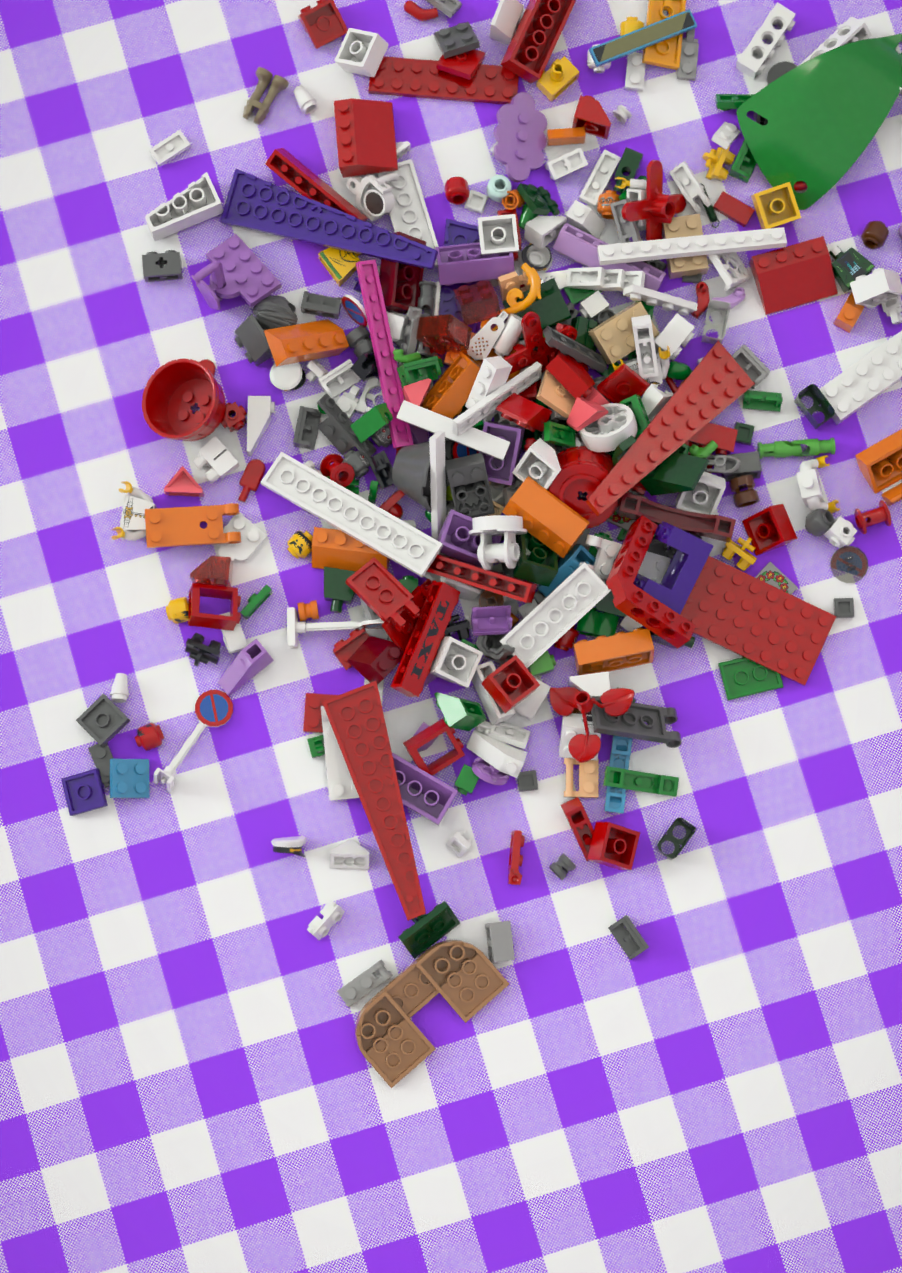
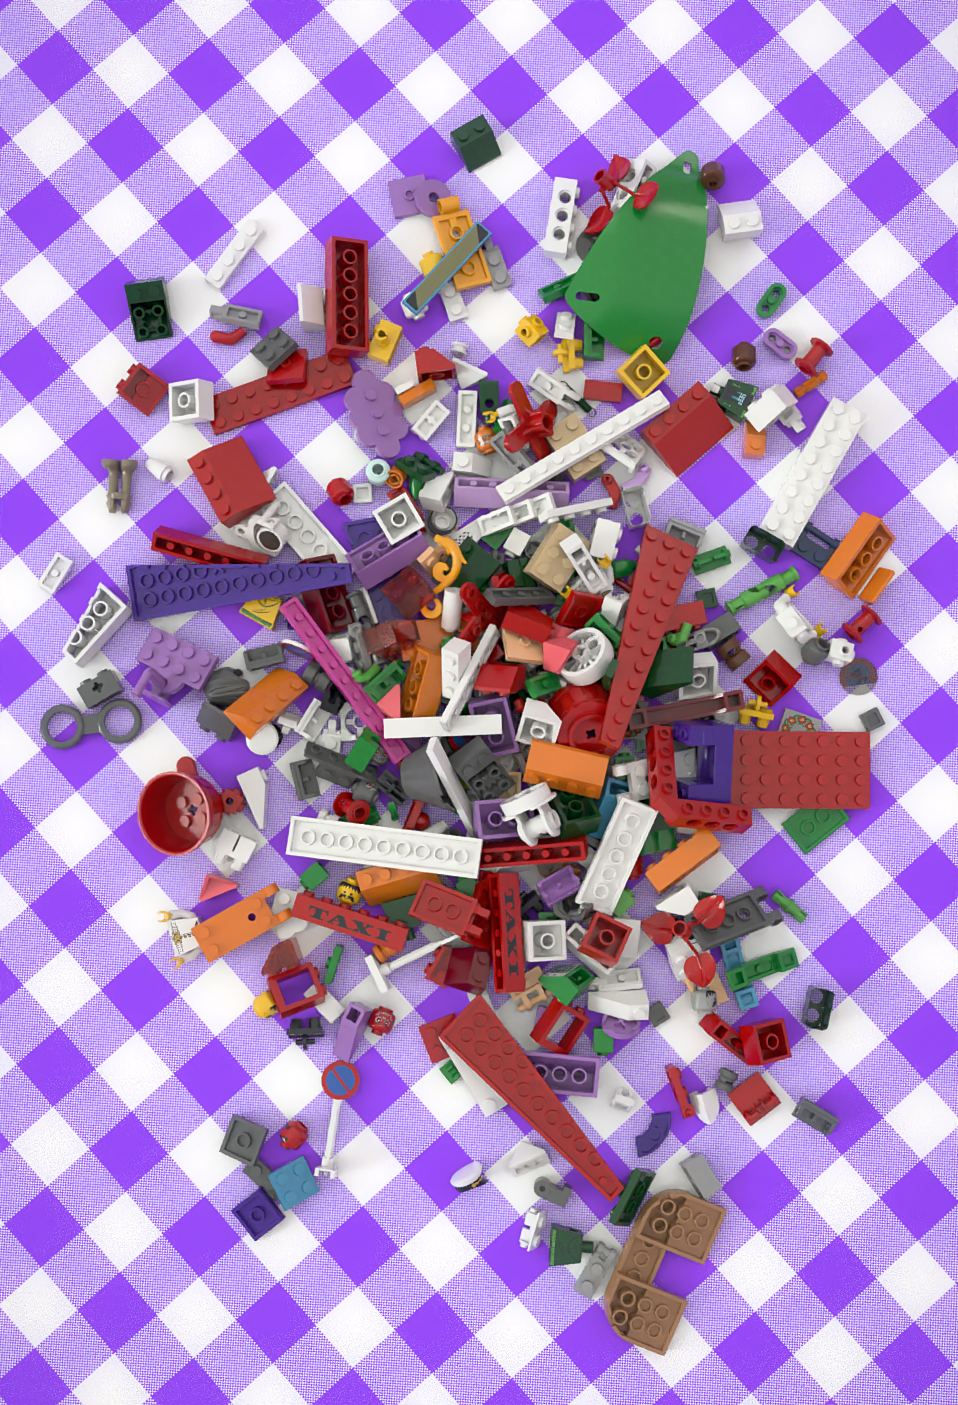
camera: 15 degrees left, 5 degrees up
(119, 690) = (245, 1102): white cone -> none
(139, 293) = (90, 724): none -> dark grey bar
(251, 478) = (275, 849): red piece -> none
(275, 516) = (314, 876): none -> green brick
(276, 671) = (381, 1021): none -> red head
(290, 568) = (350, 921): none -> red brick
(349, 948) = (567, 1245): none -> dark green torso
(354, 891) = (552, 1192): none -> dark grey leg
(425, 700) = (532, 984): none -> light nougat plate
(474, 888) = (654, 1135): none -> dark purple tile
(489, 335) = (432, 618): white piece -> none
(533, 881) = (705, 1105): none -> white brick
(556, 124) = (404, 387): none -> white tile
(575, 784) = (704, 1000): none -> light grey head
(580, 896) = (754, 1098): none -> red hinge
(619, 139) = (467, 374): none -> white slope
(691, 738) = (789, 906): none -> bright green pin
(694, 126) = (531, 330): none -> yellow brick
(820, 26) = (607, 181): none -> red plant
(857, 433) = (811, 551): none -> dark blue plate

